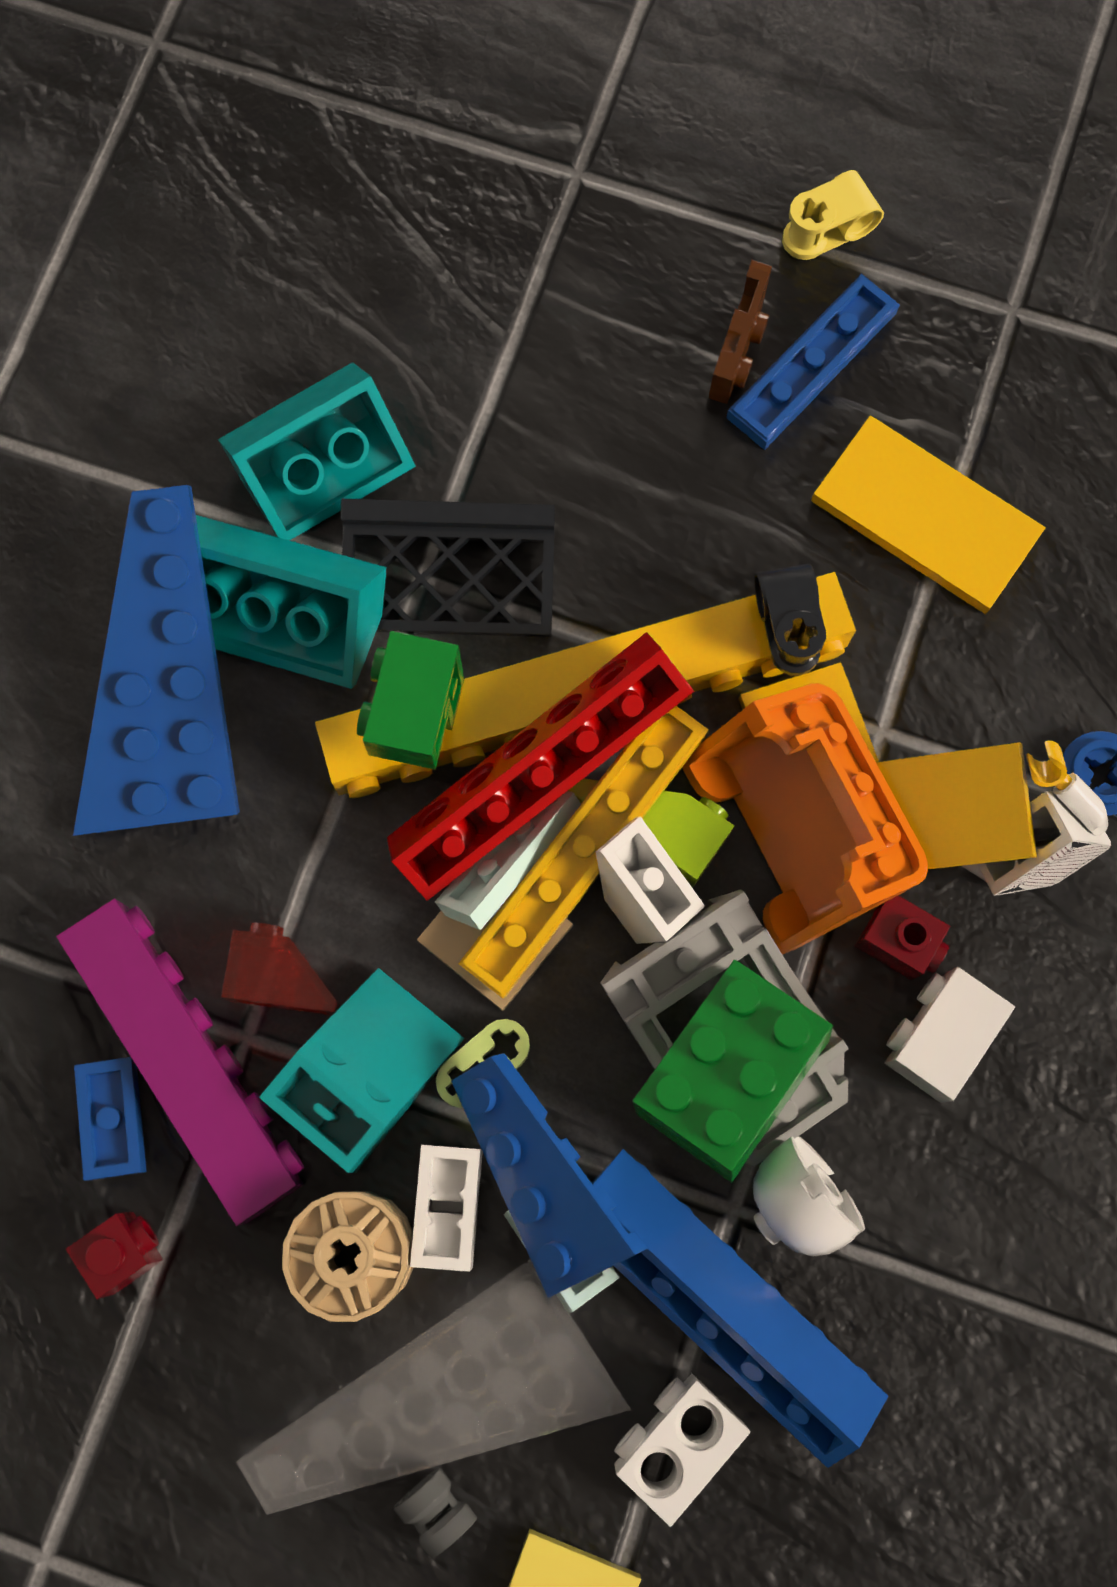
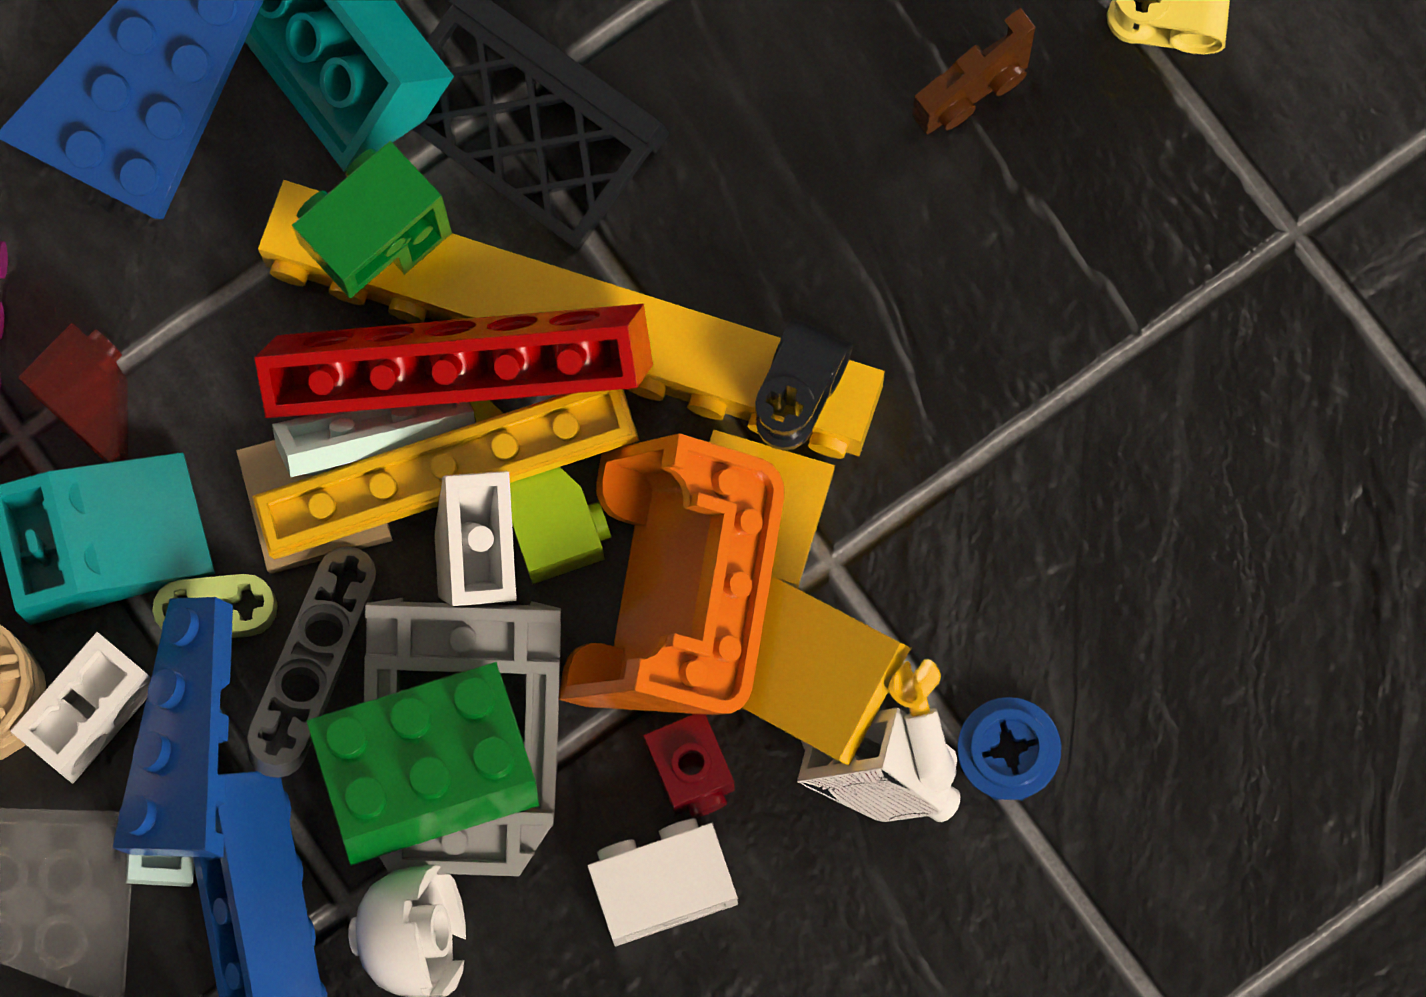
camera: 40 degrees right, 0 degrees up
(588, 1052) = (308, 659): none -> dark grey beam
(812, 361) = (1043, 148): blue tile -> none
(927, 514) = (1038, 380): yellow tile -> none

